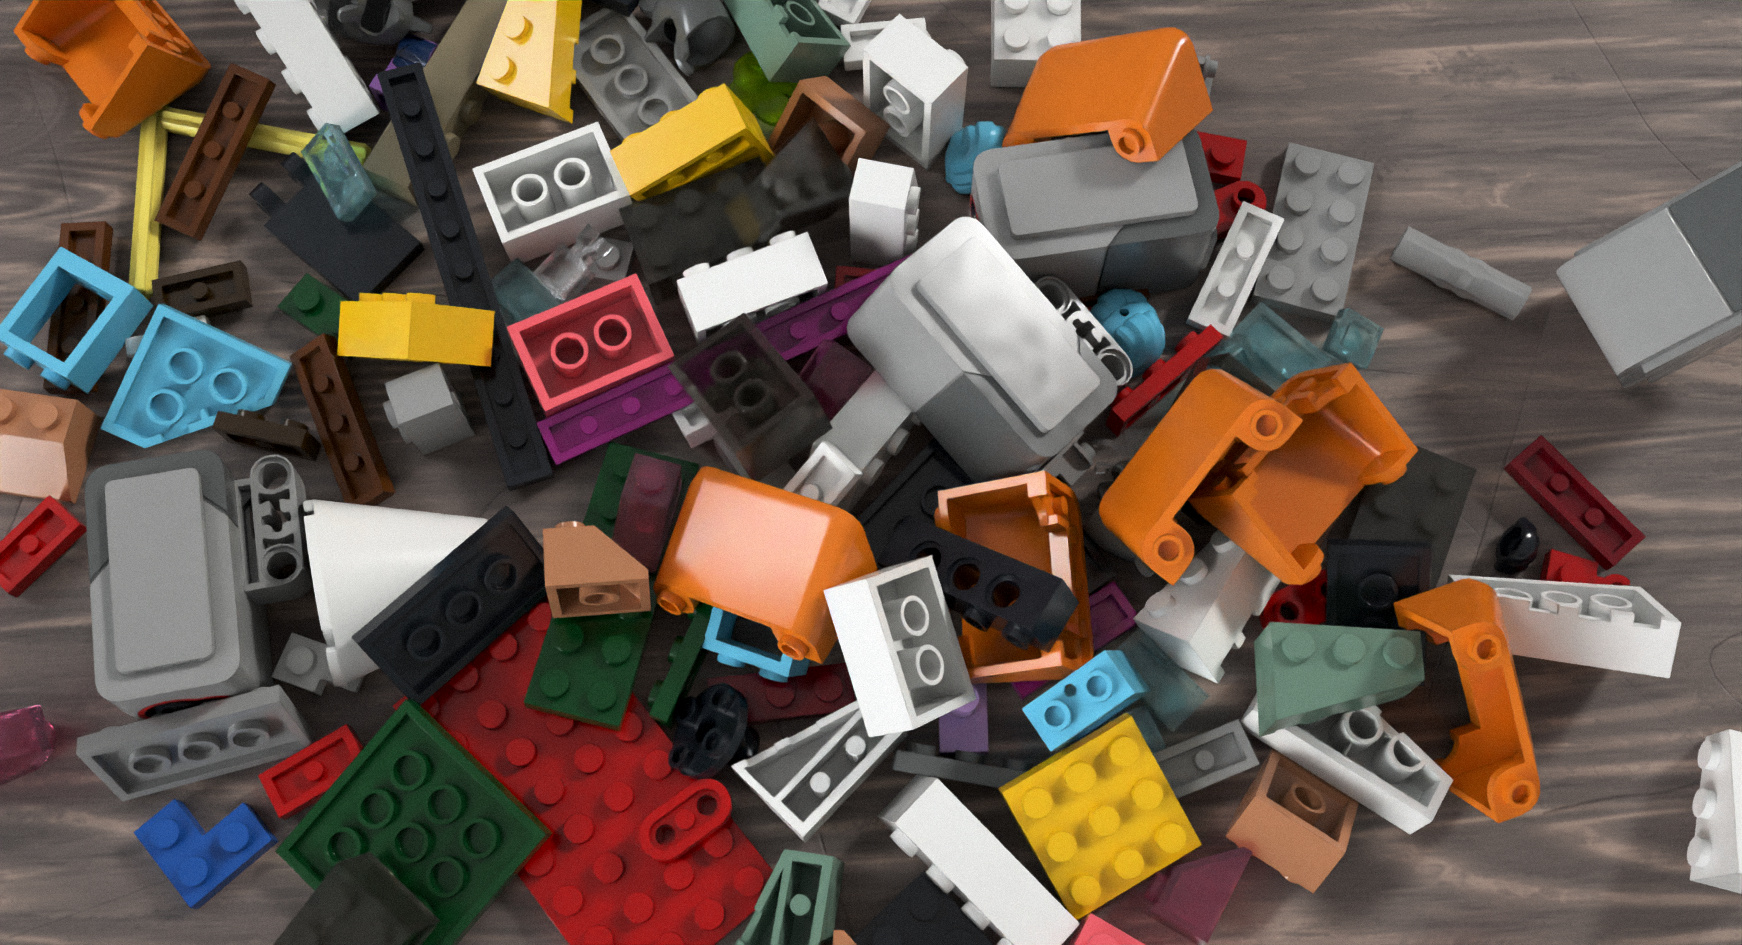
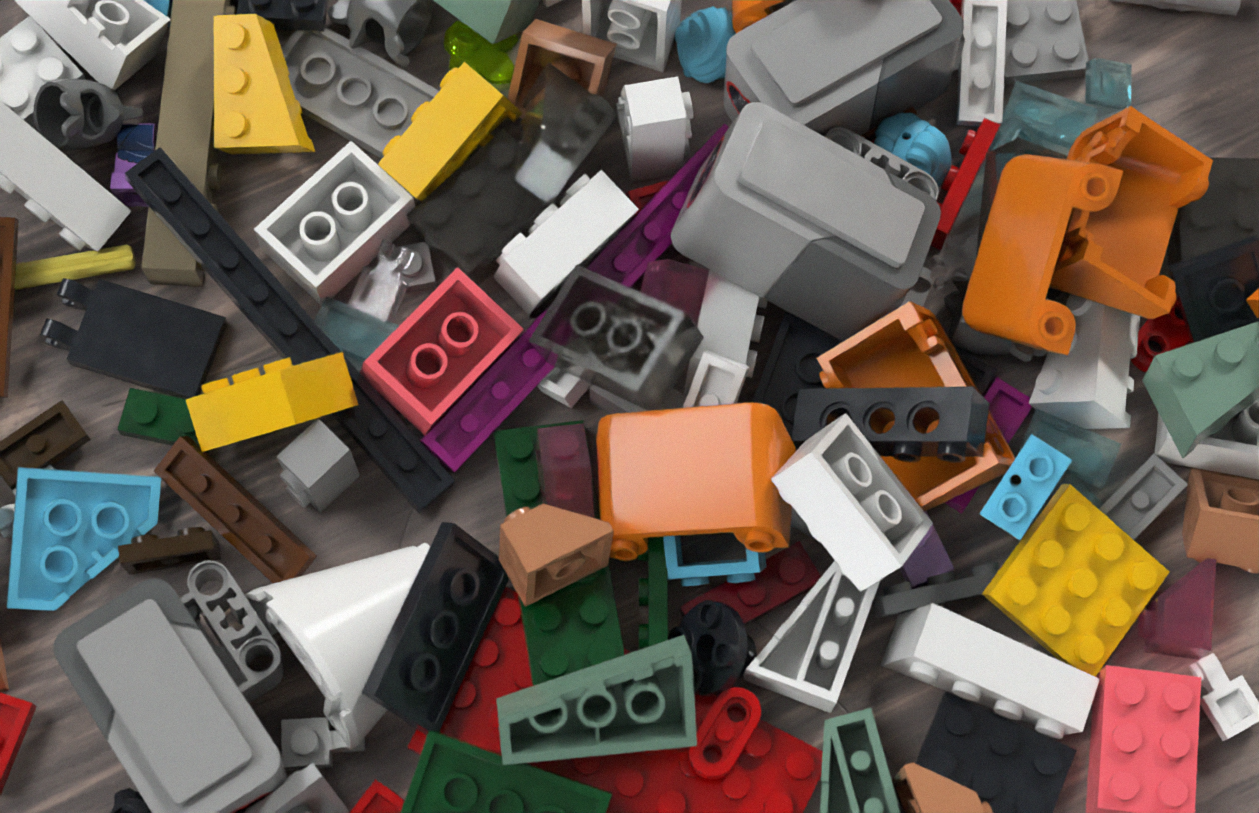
camera: 25 degrees left, 0 degrees up
(339, 172) = (121, 280): clear light blue plate -> none
(573, 748) = (605, 709): none -> sand green wedge

